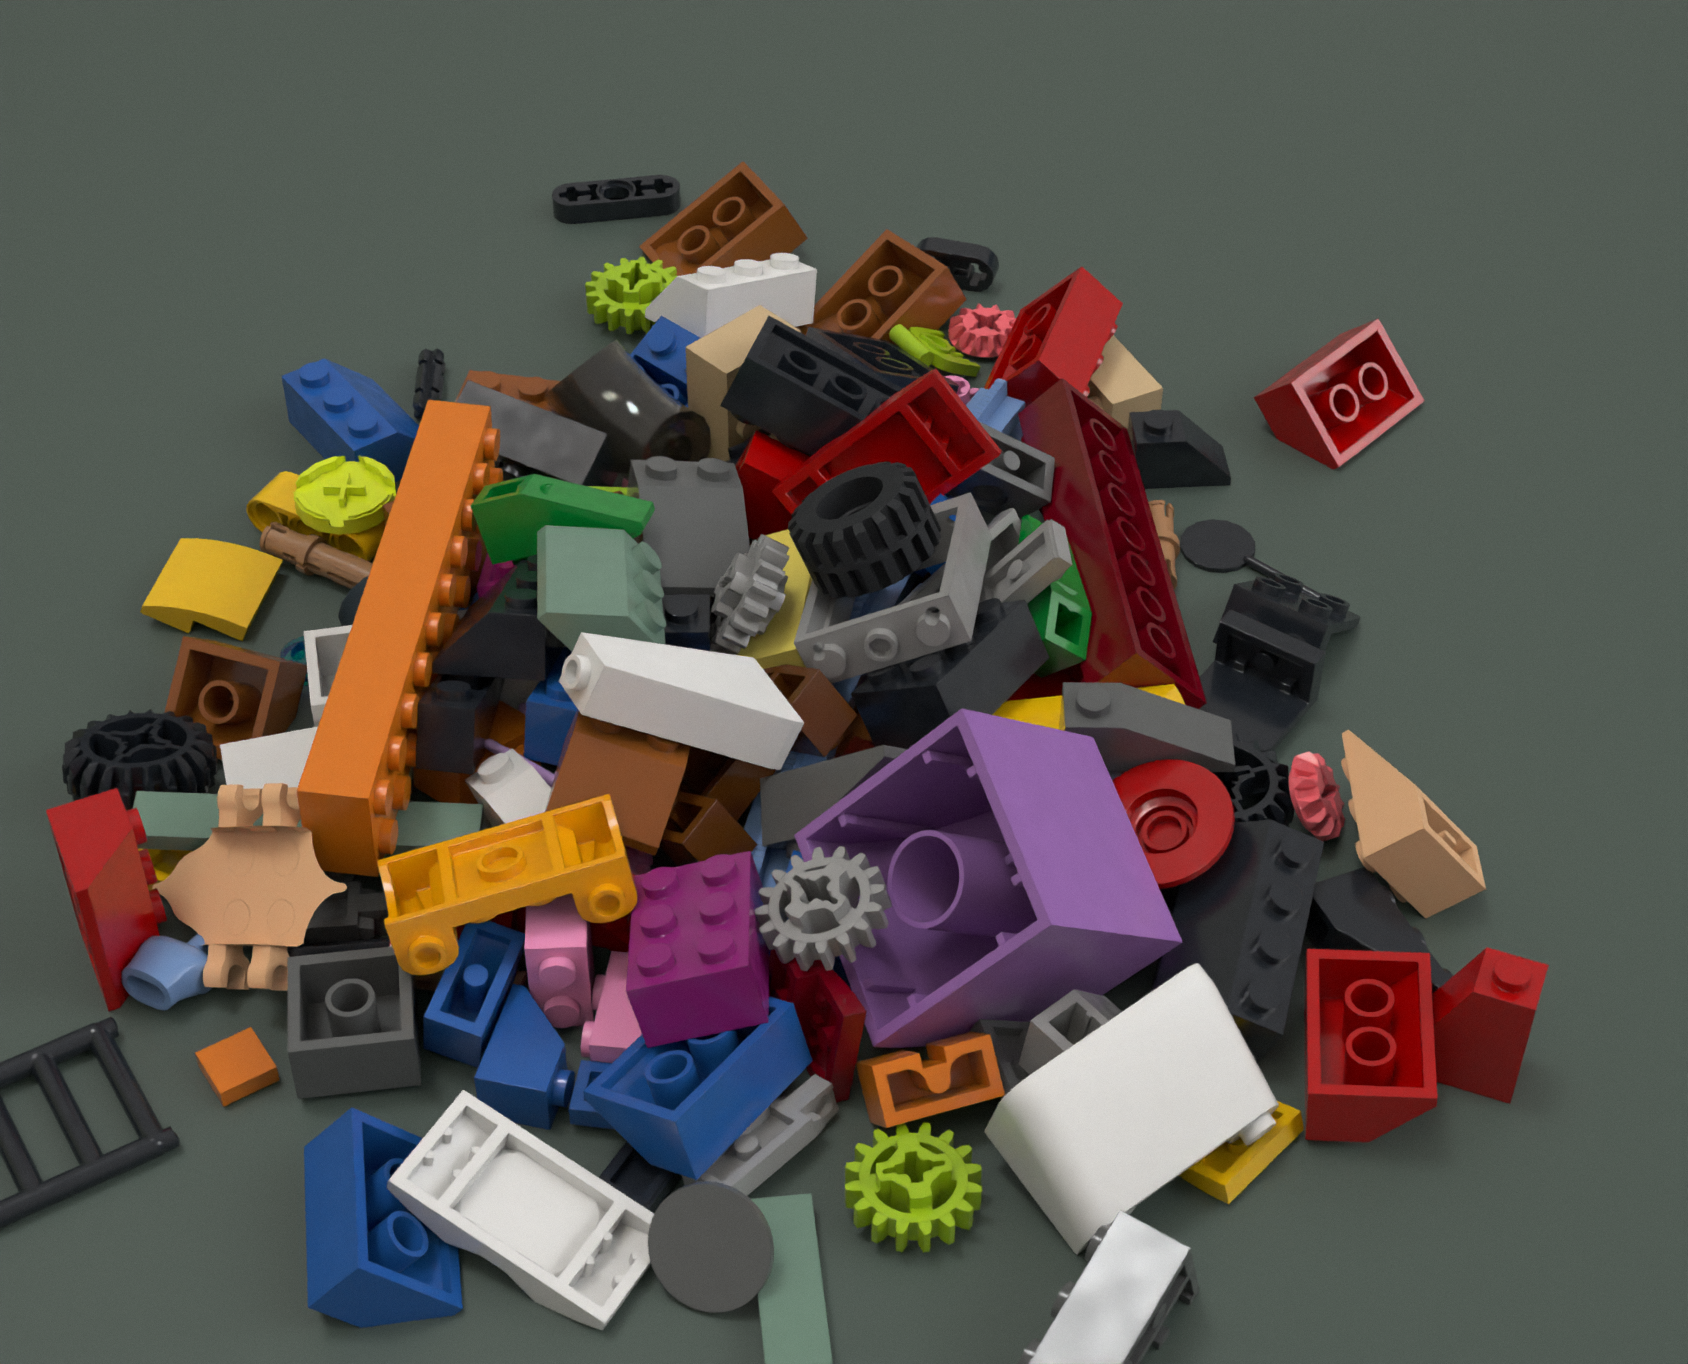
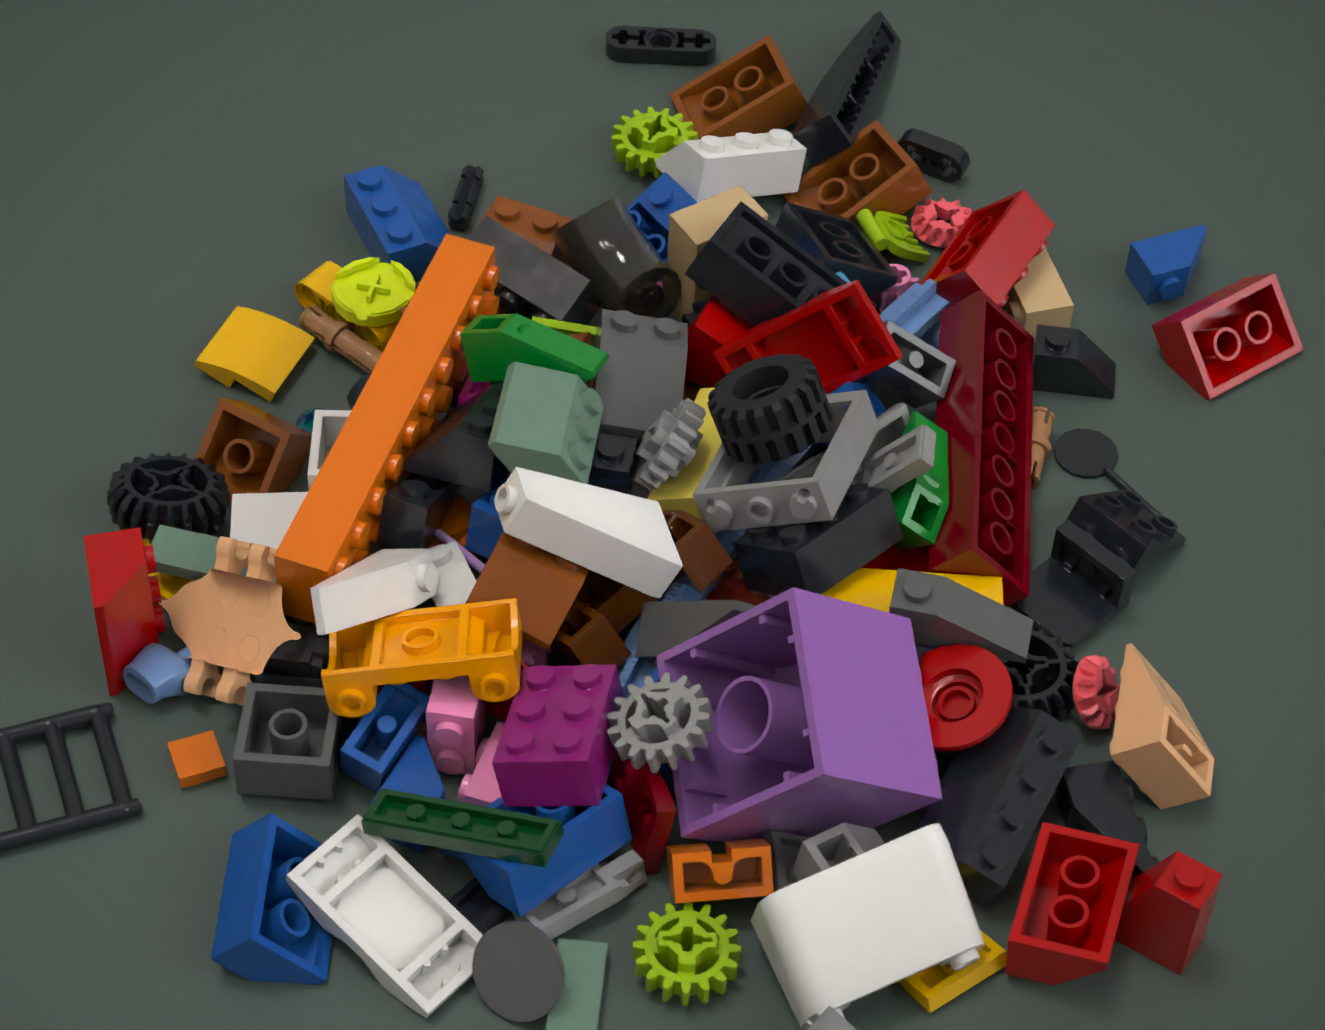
camera: 10 degrees right, 5 degrees up
(429, 813) = (374, 589): none -> white slope
(603, 1079) = (463, 827): none -> dark green tile
(843, 212) = (847, 92): none -> black slope
(1245, 335) = (1165, 263): none -> blue slope

